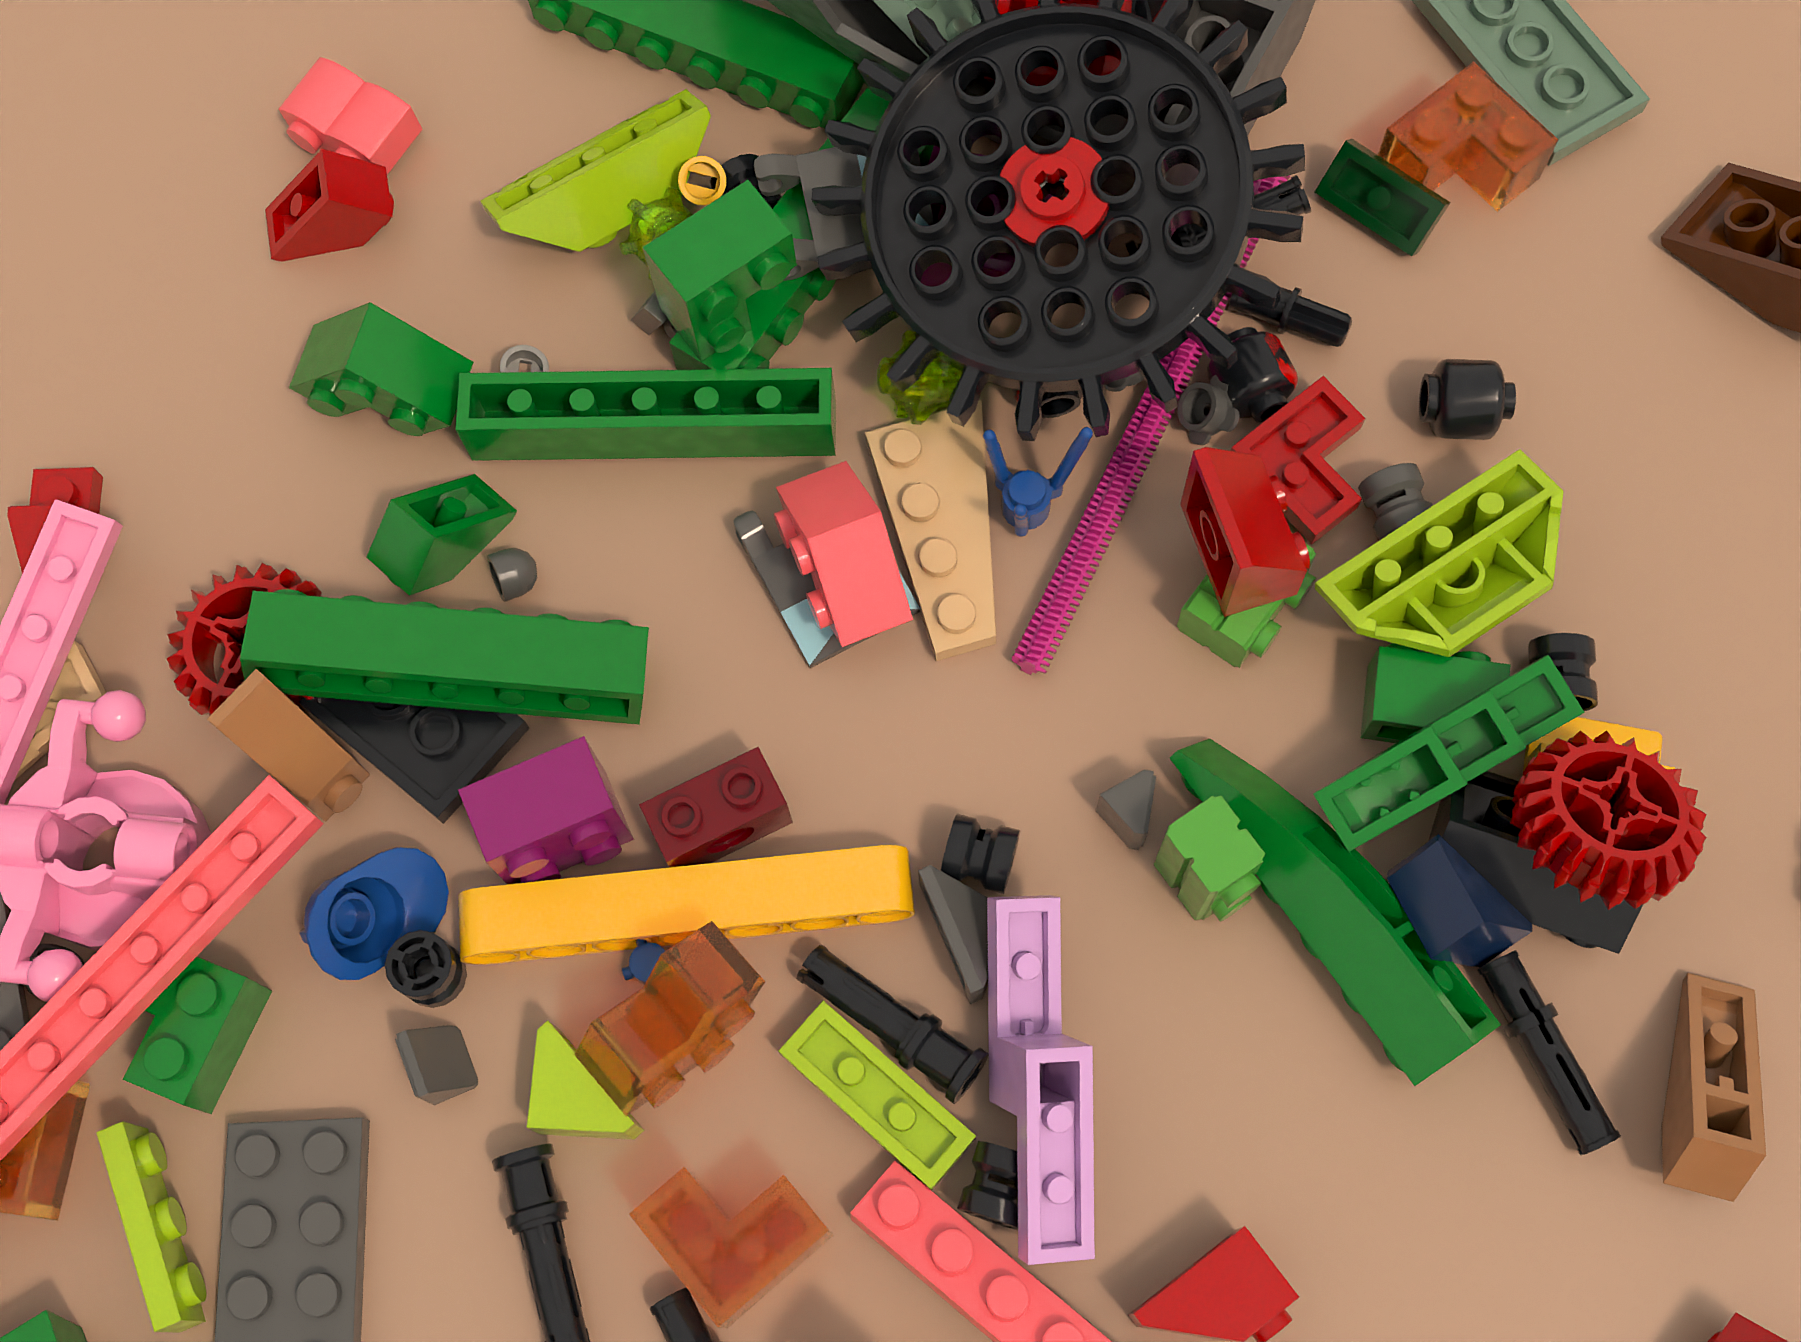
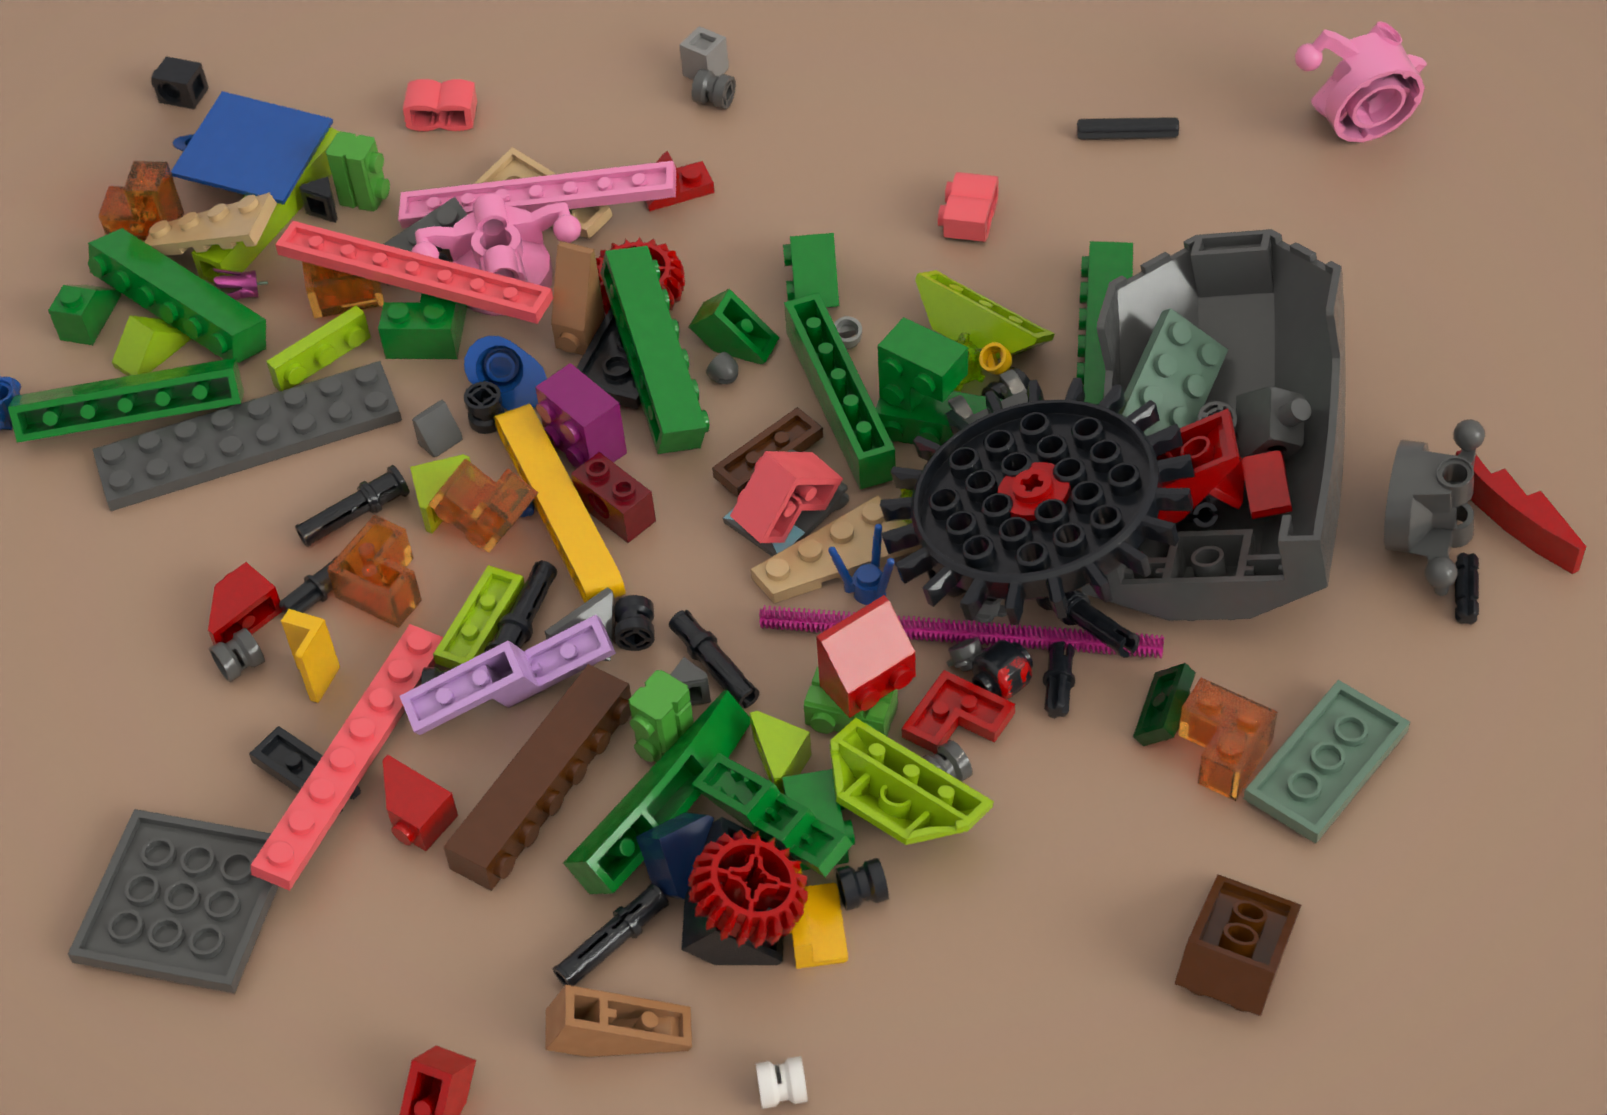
camera: 70 degrees right, 20 degrees down
(329, 207) = (911, 218): red slope -> none
(714, 559) = (791, 432): none -> reddish brown plate
(1071, 762) = (703, 647): none -> black pin
(1233, 1081) = (539, 778): none -> reddish brown brick
(1302, 714) = (781, 747): none -> lime slope
(1466, 399) = (1032, 782): black head -> none

